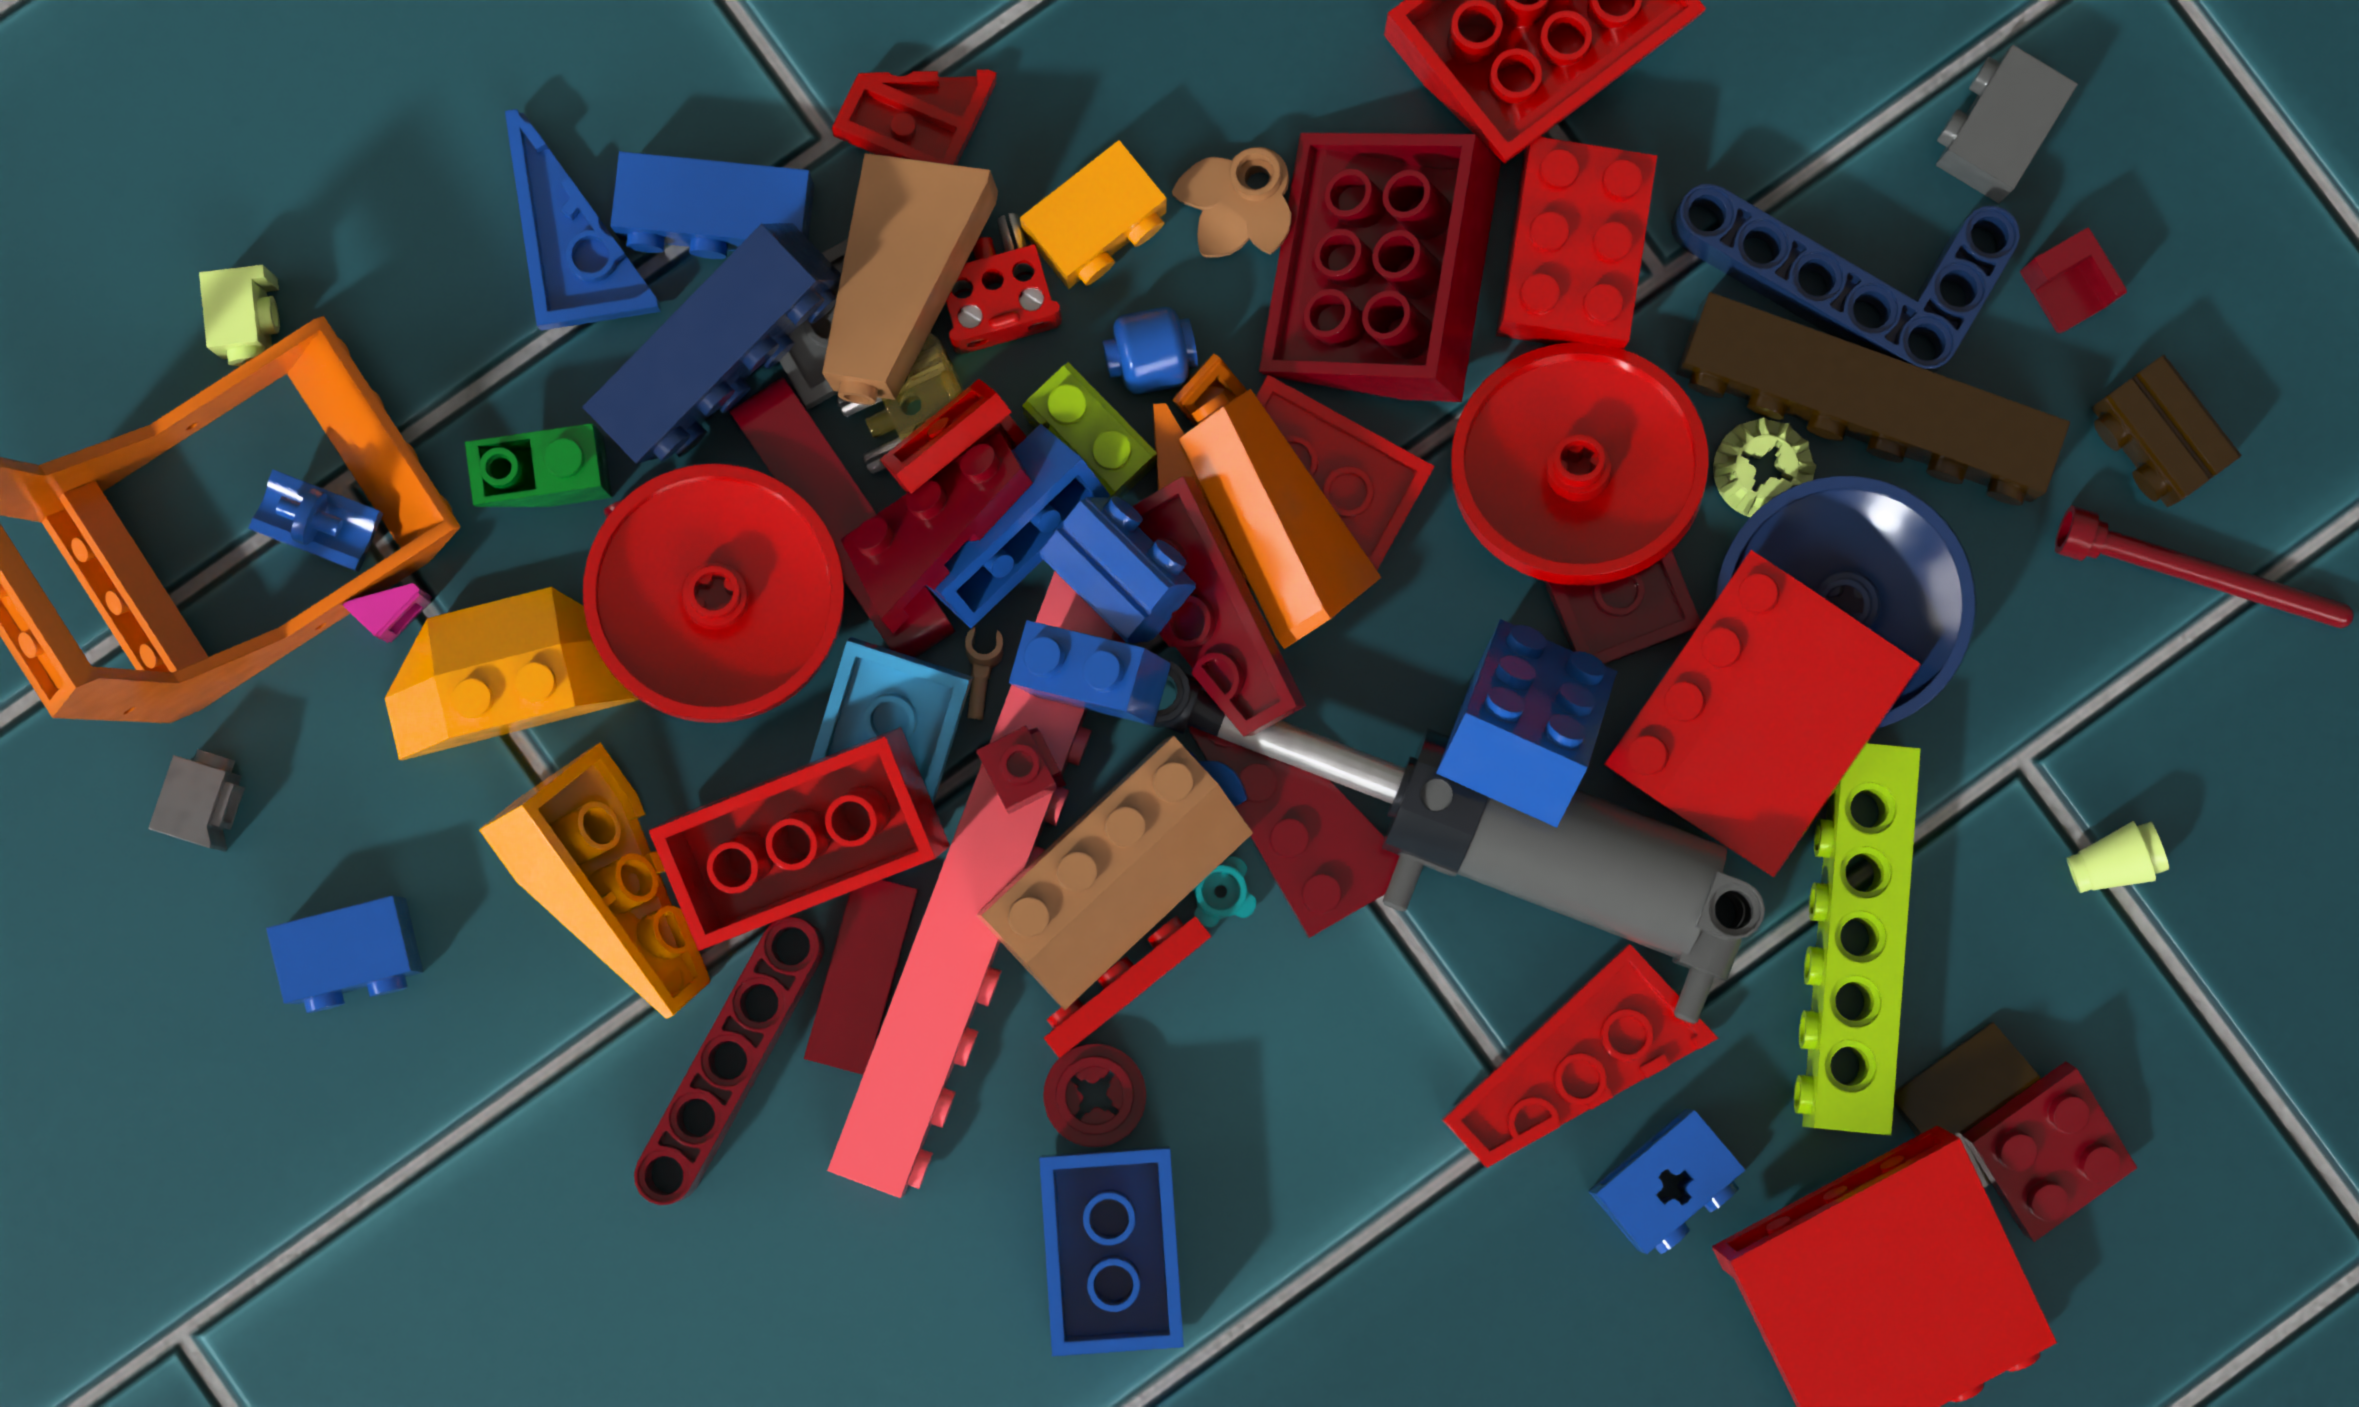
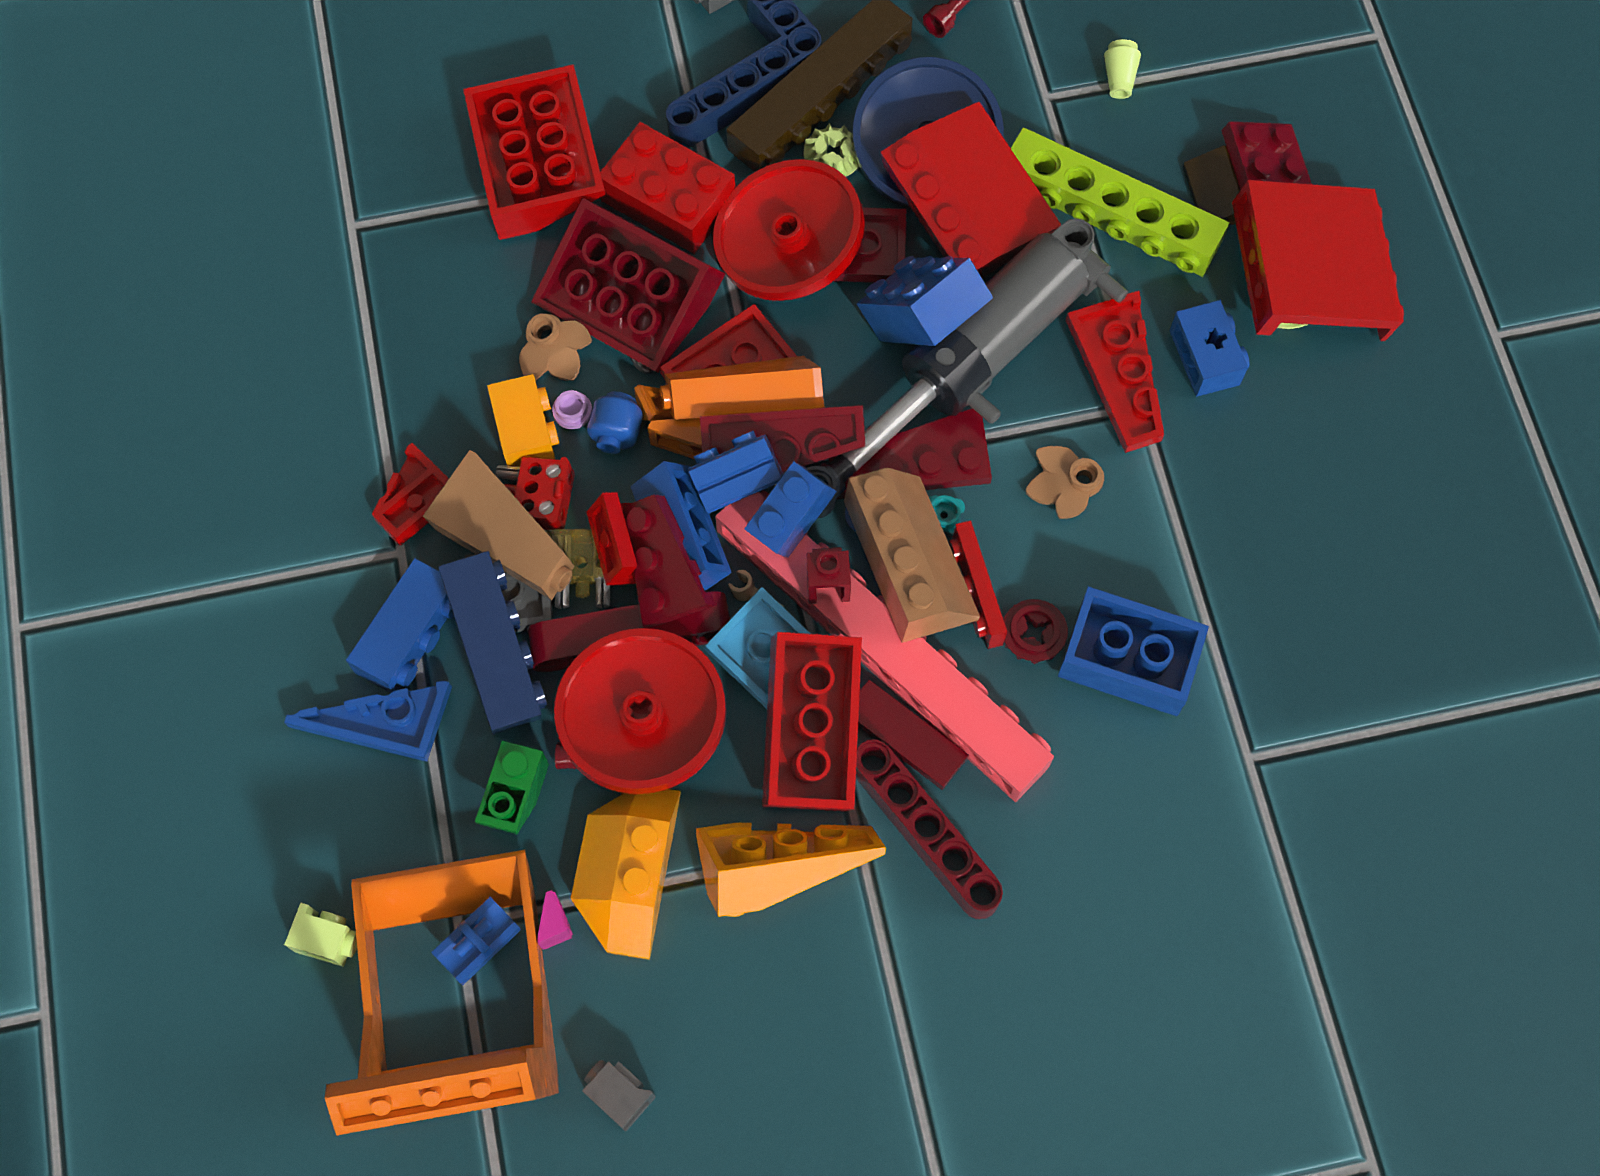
camera: 60 degrees left, 15 degrees down
(345, 952) = (756, 1039): blue brick -> none
(1091, 429) = (631, 466): lime brick -> none
(1151, 277) = (572, 409): none -> lavender plate
(1349, 1038) = (1059, 481): none -> medium nougat plate

